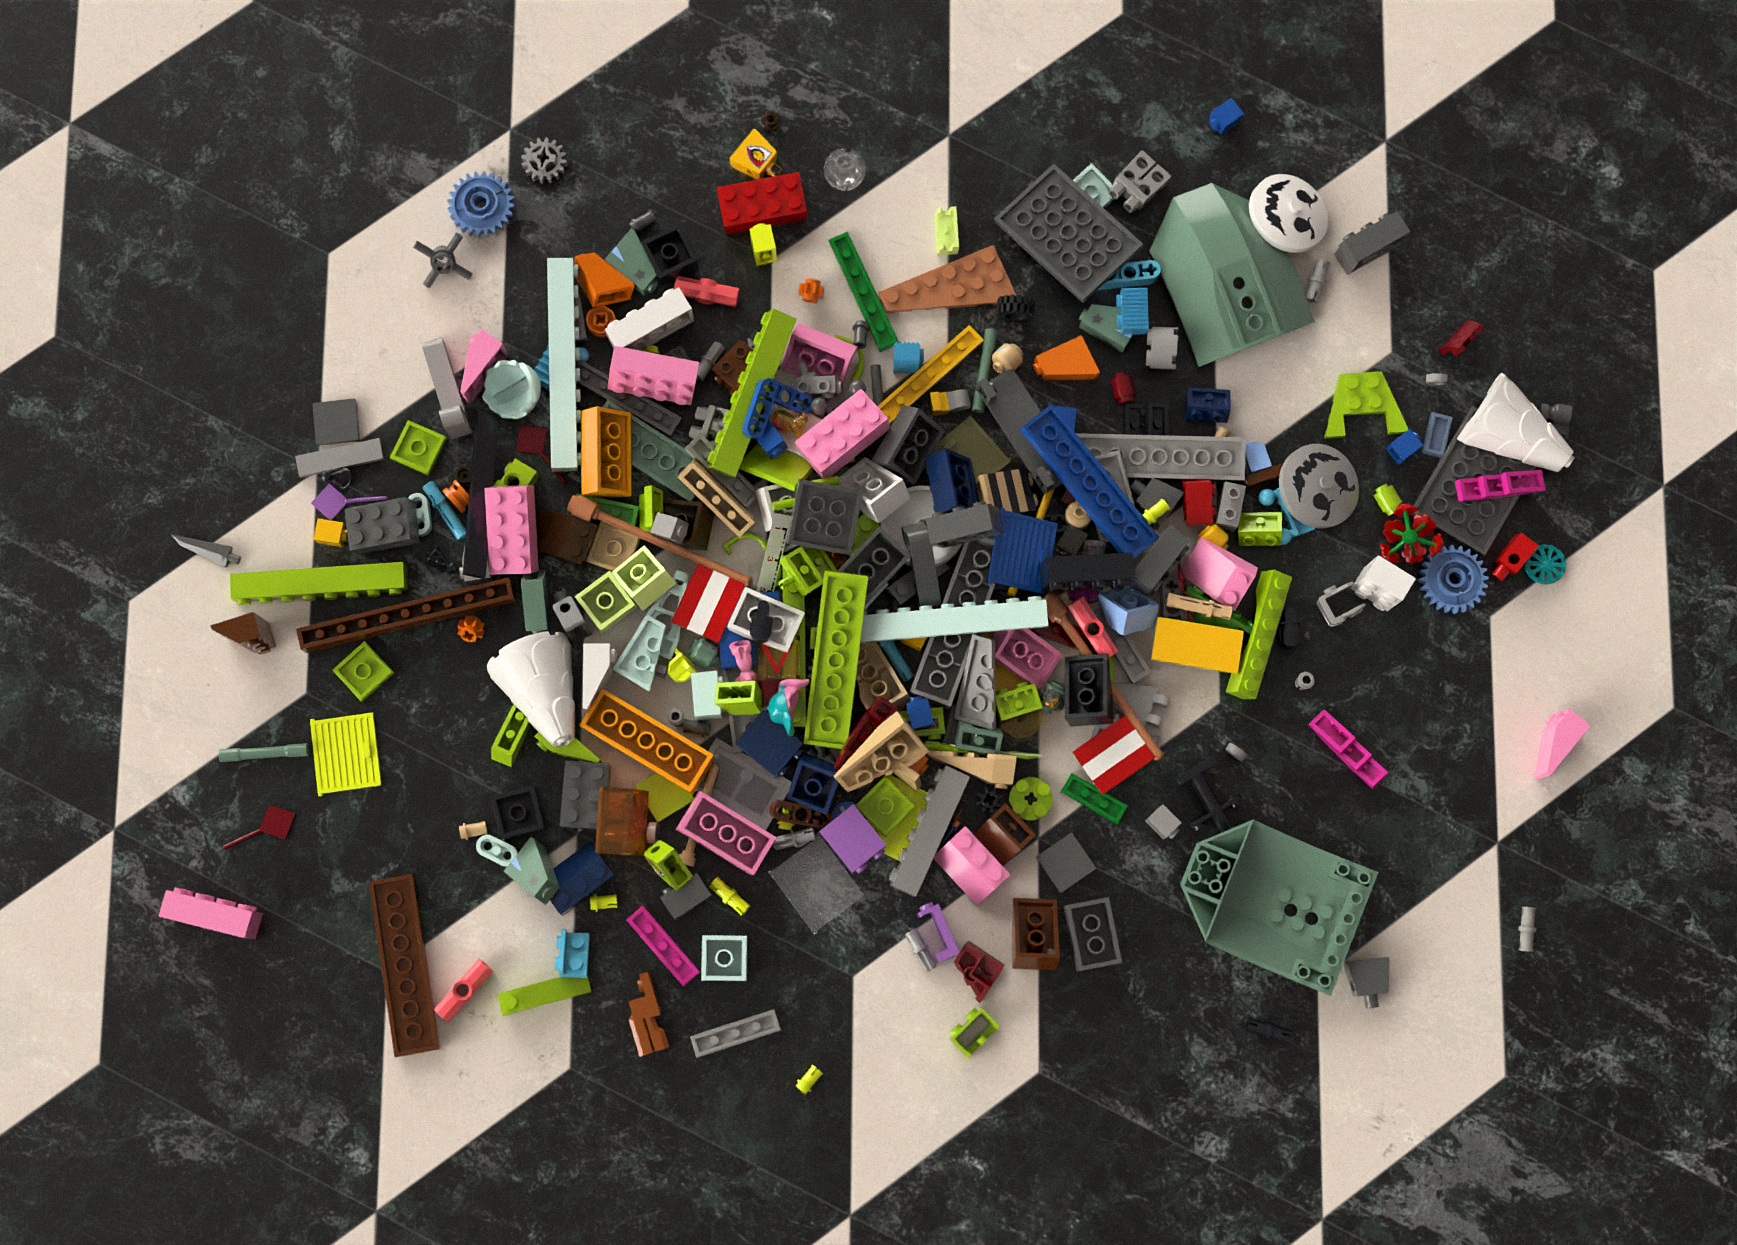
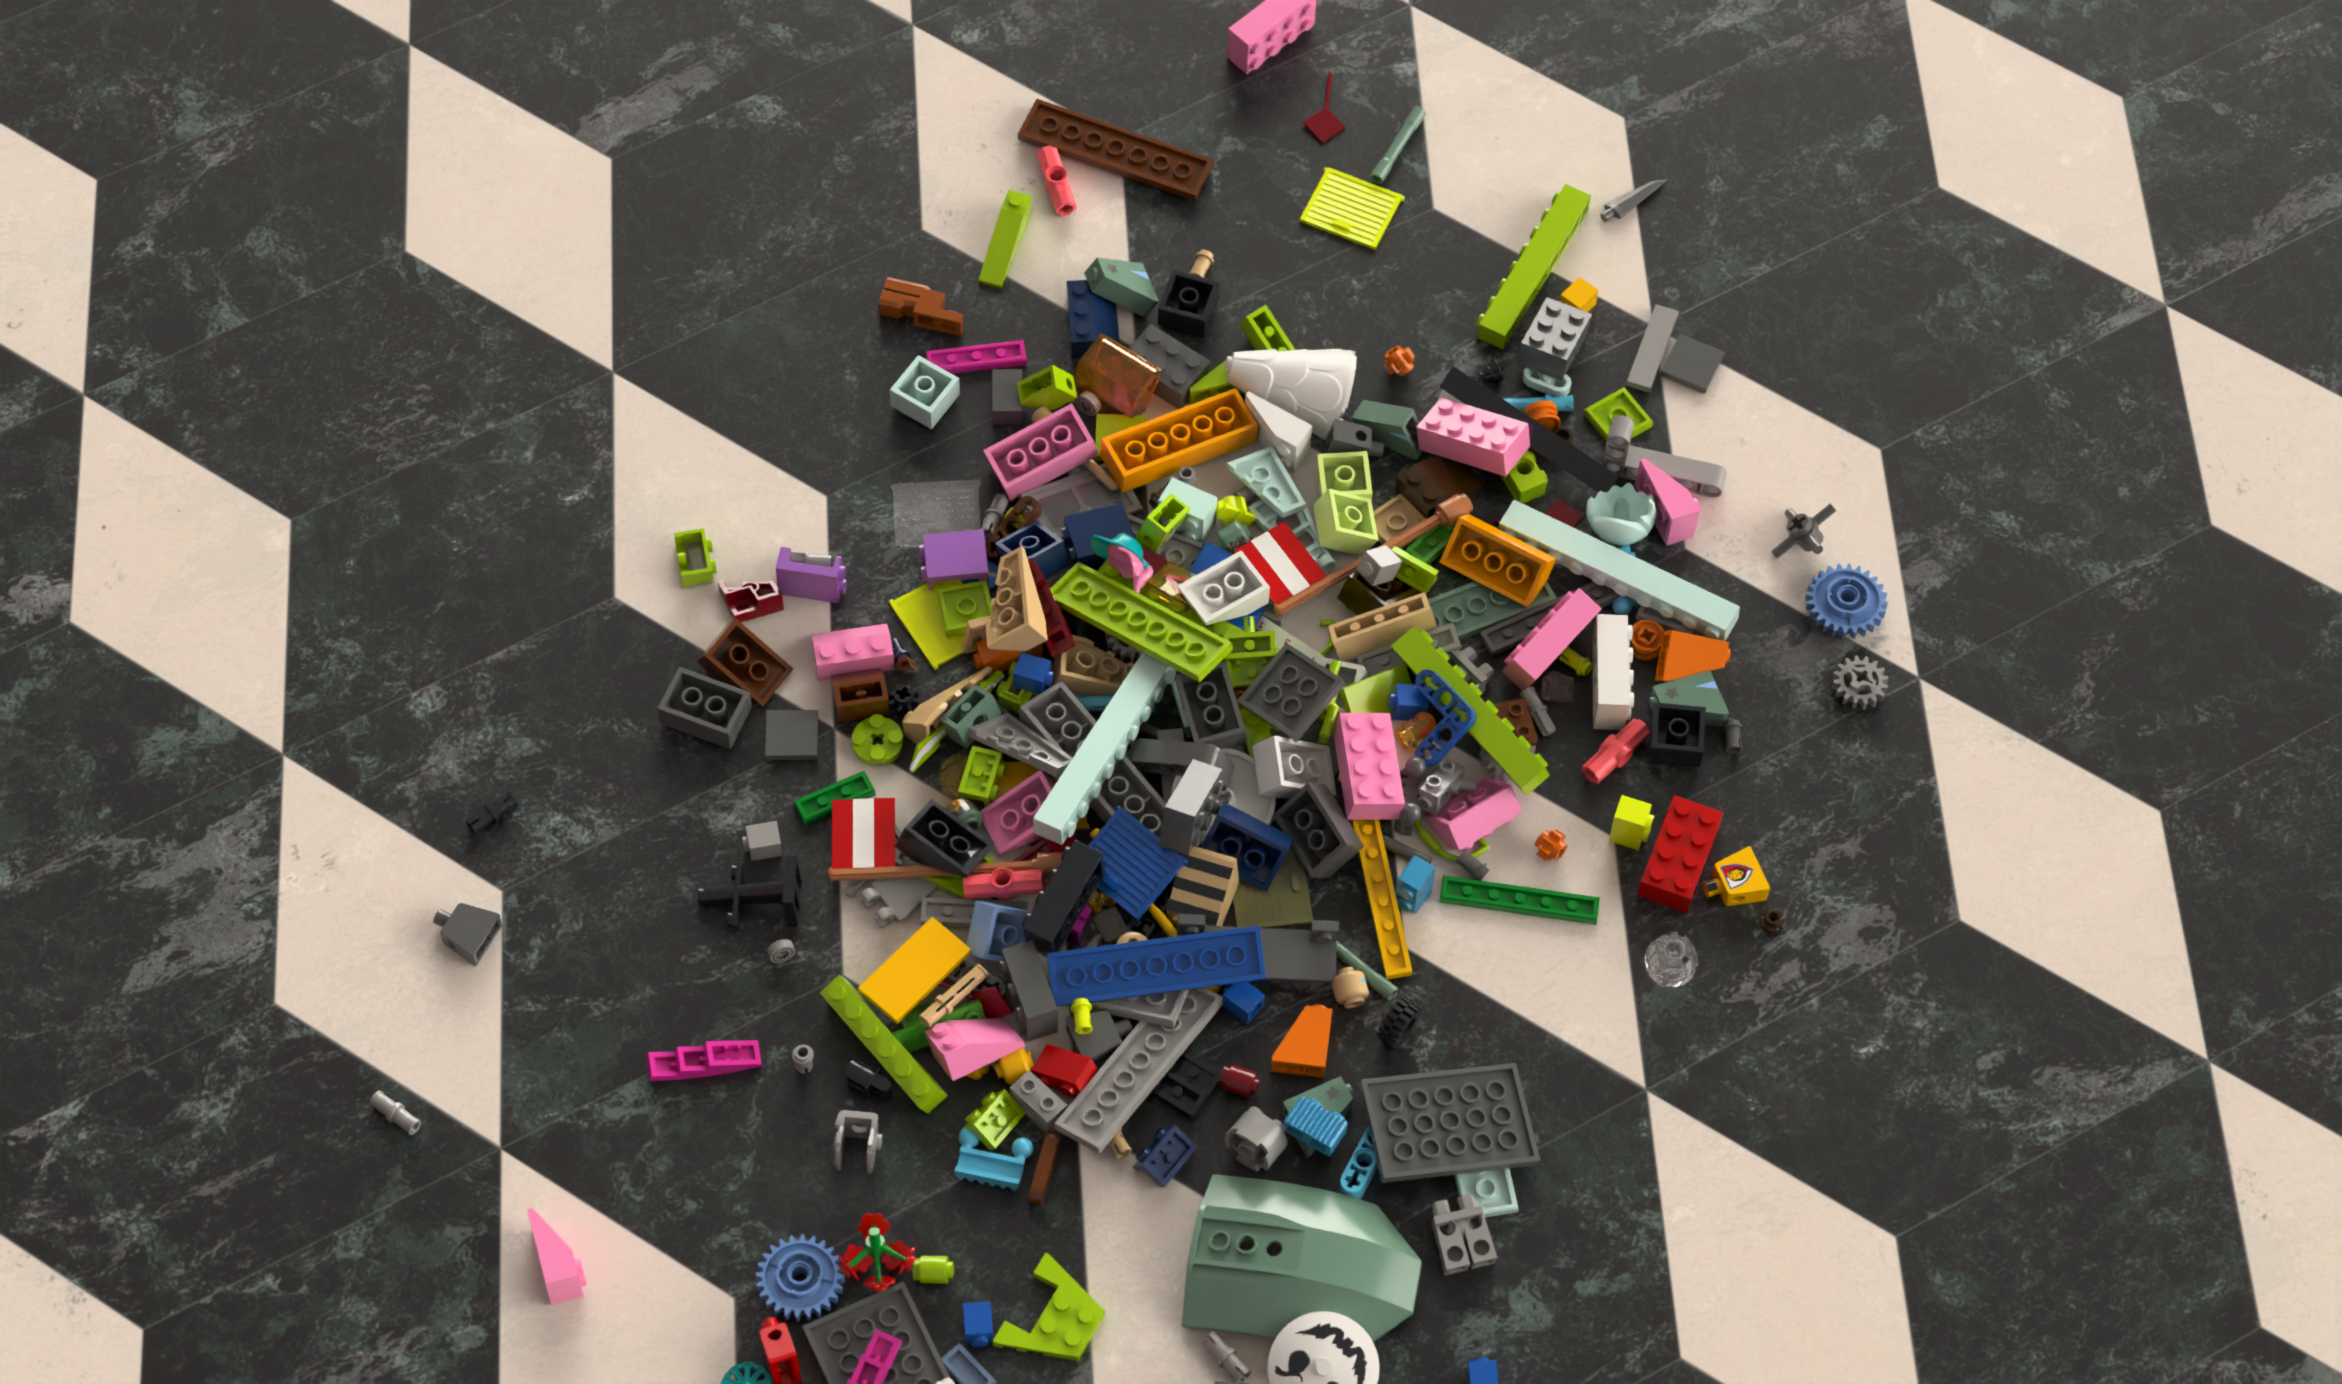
camera: 125 degrees right, 20 degrees down
(247, 631) = (1517, 173): reddish brown slope -> none
(331, 501) = (1610, 321): medium lavender piece -> none
(341, 477) = (1630, 334): black piece -> none
(363, 671) = (1421, 260): lime tile -> none
(406, 615) = (1449, 312): reddish brown brick -> none
(497, 851) = (1163, 270): light aqua plate -> none
(573, 954) = (1023, 278): medium azure bracket -> none
(603, 902) = (1056, 326): neon yellow pin -> none
(729, 896) = (980, 433): neon yellow pin -> none
(735, 1033) = (849, 371): light grey tile -> none
(741, 651) = (1198, 557): bright pink animal -> none
(761, 623) = (1221, 573): black arm -> none
(809, 1079) = (758, 397): neon yellow pin -> none
(929, 831) = (912, 628): light grey brick -> none
(946, 231) = (1532, 1017): yellowish green hinge -> none
(949, 402) = (1343, 902): leg -> none
(961, 283) = (1464, 1001): nougat wing -> none
(1246, 879) = (629, 854): sand green wedge -> none
(1256, 458) = (1072, 1163): light blue brick -> none
(1318, 486) = (996, 1203): light grey dish -> none
(1382, 584) = (845, 1184): white brick -> none

